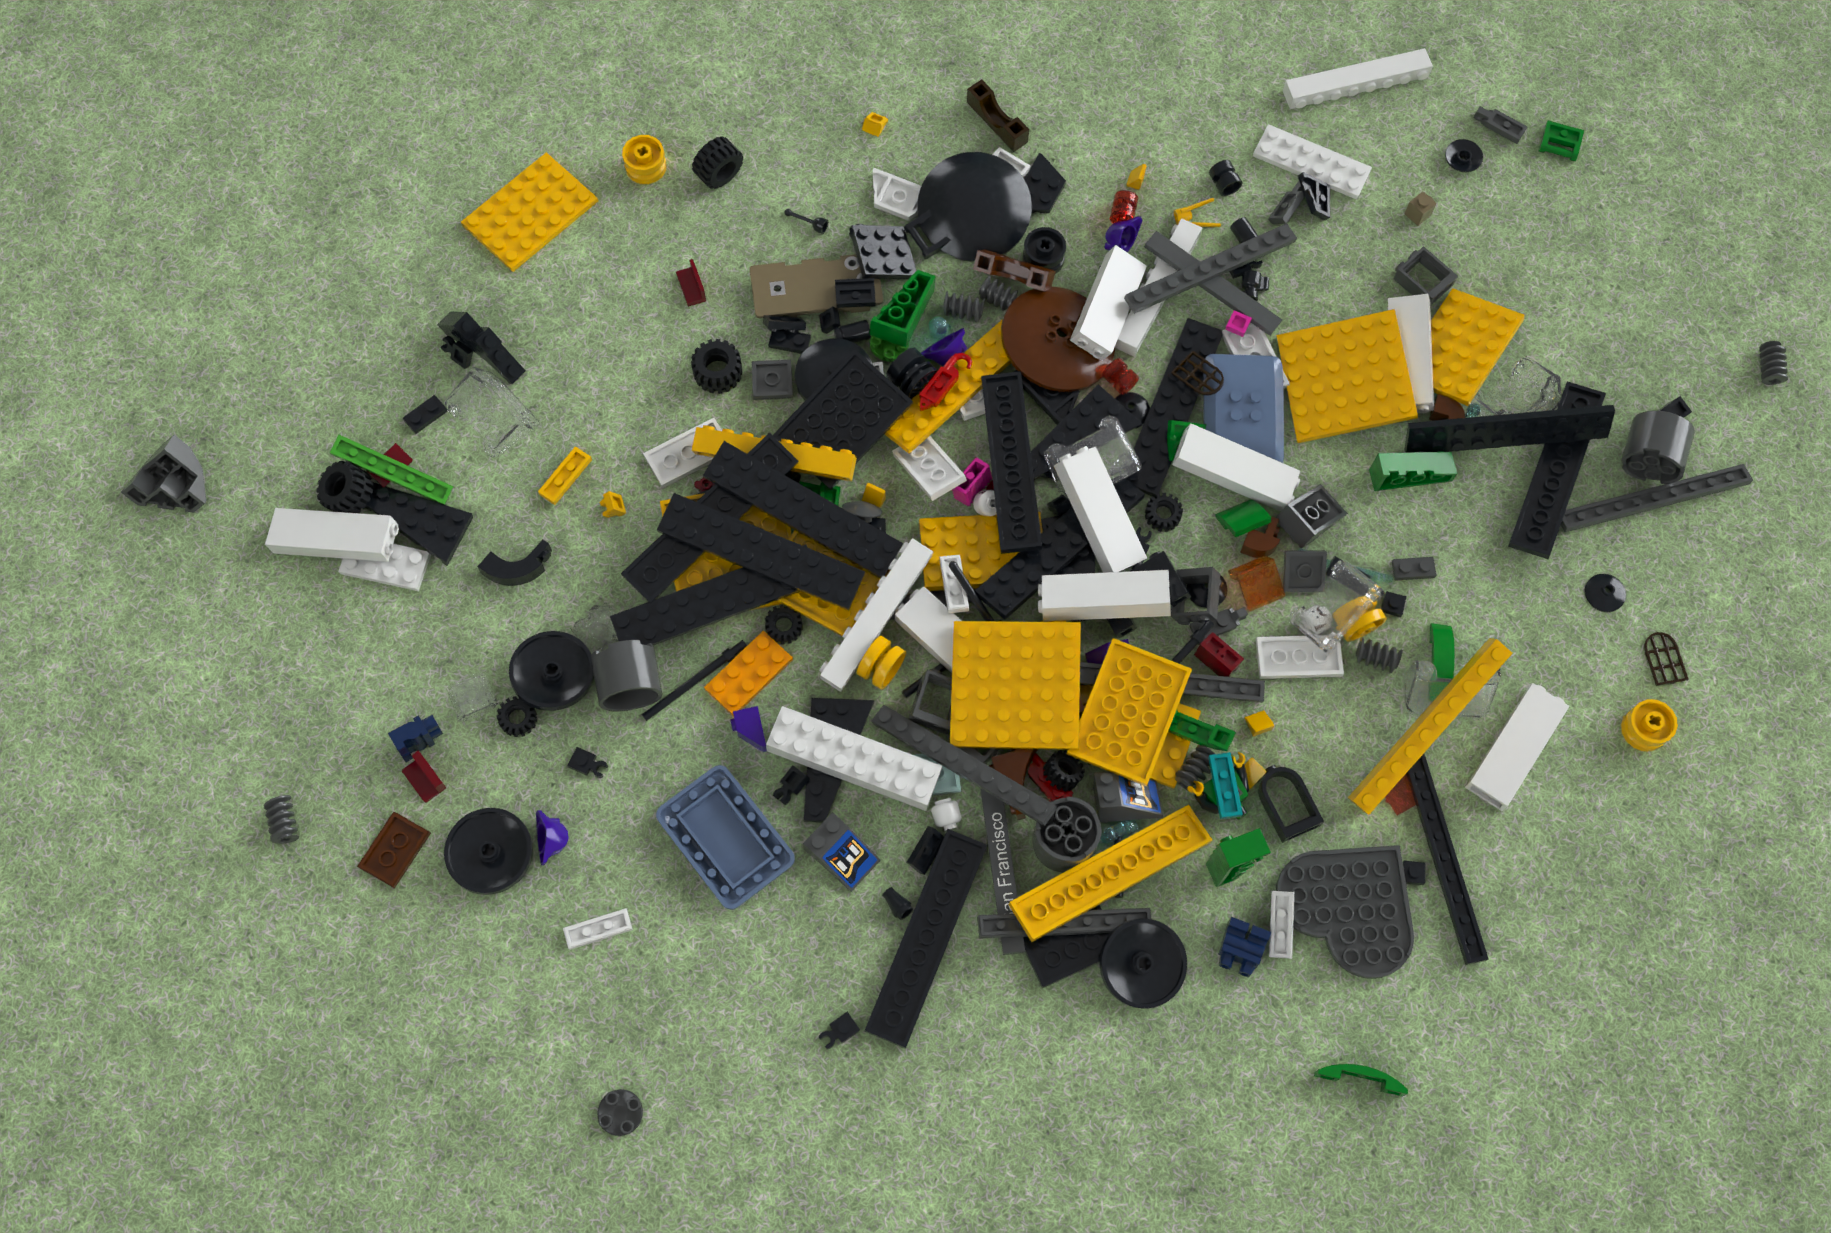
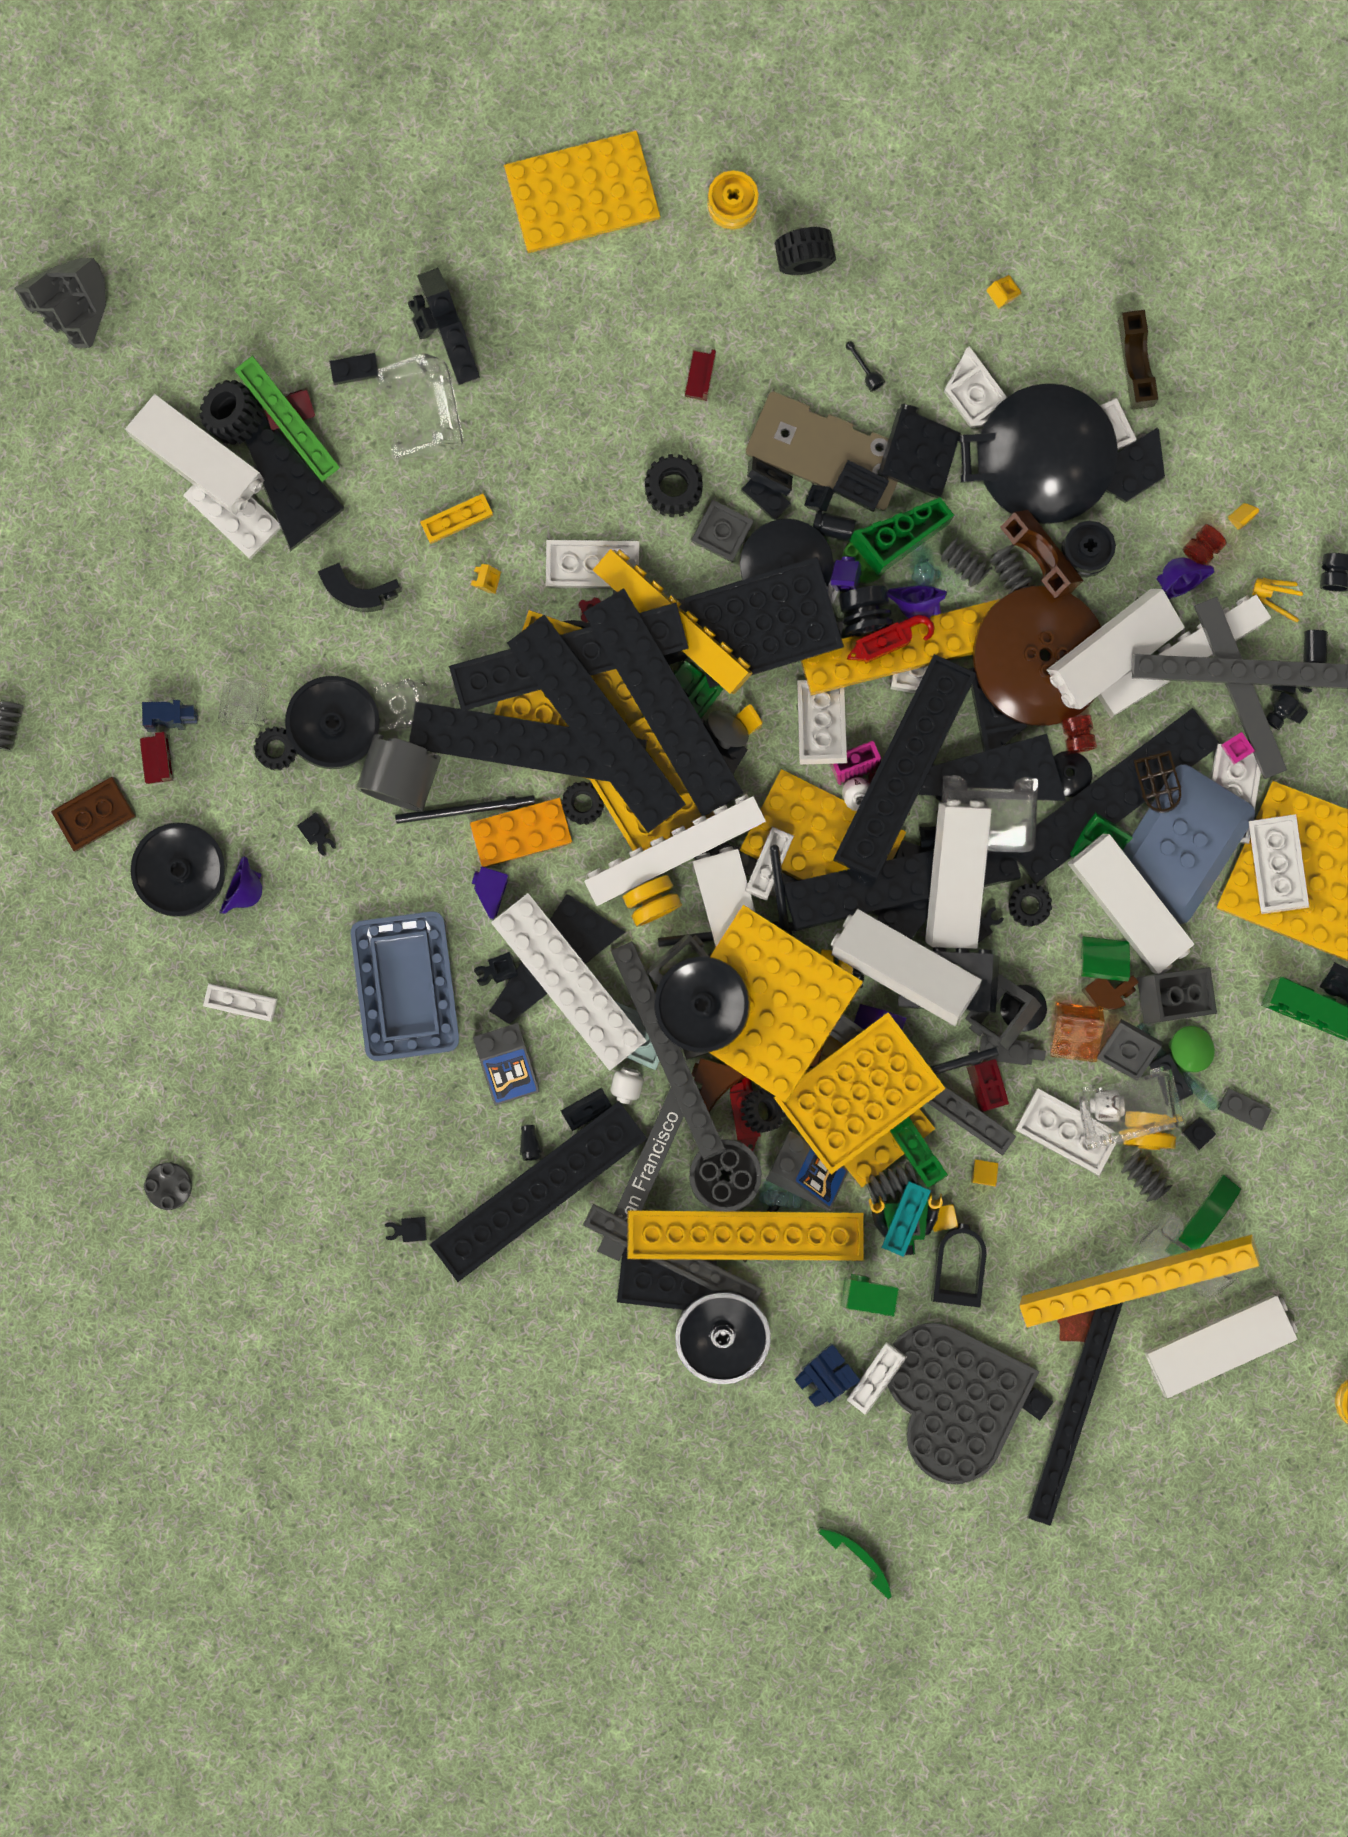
camera: 30 degrees right, 15 degrees up
(883, 355) = (846, 574): none -> dark purple slope
(969, 709) = (702, 1004): none -> black dish
(1322, 381) = (1278, 864): none -> white plate
(1348, 546) = (1192, 1049): none -> bright green dish

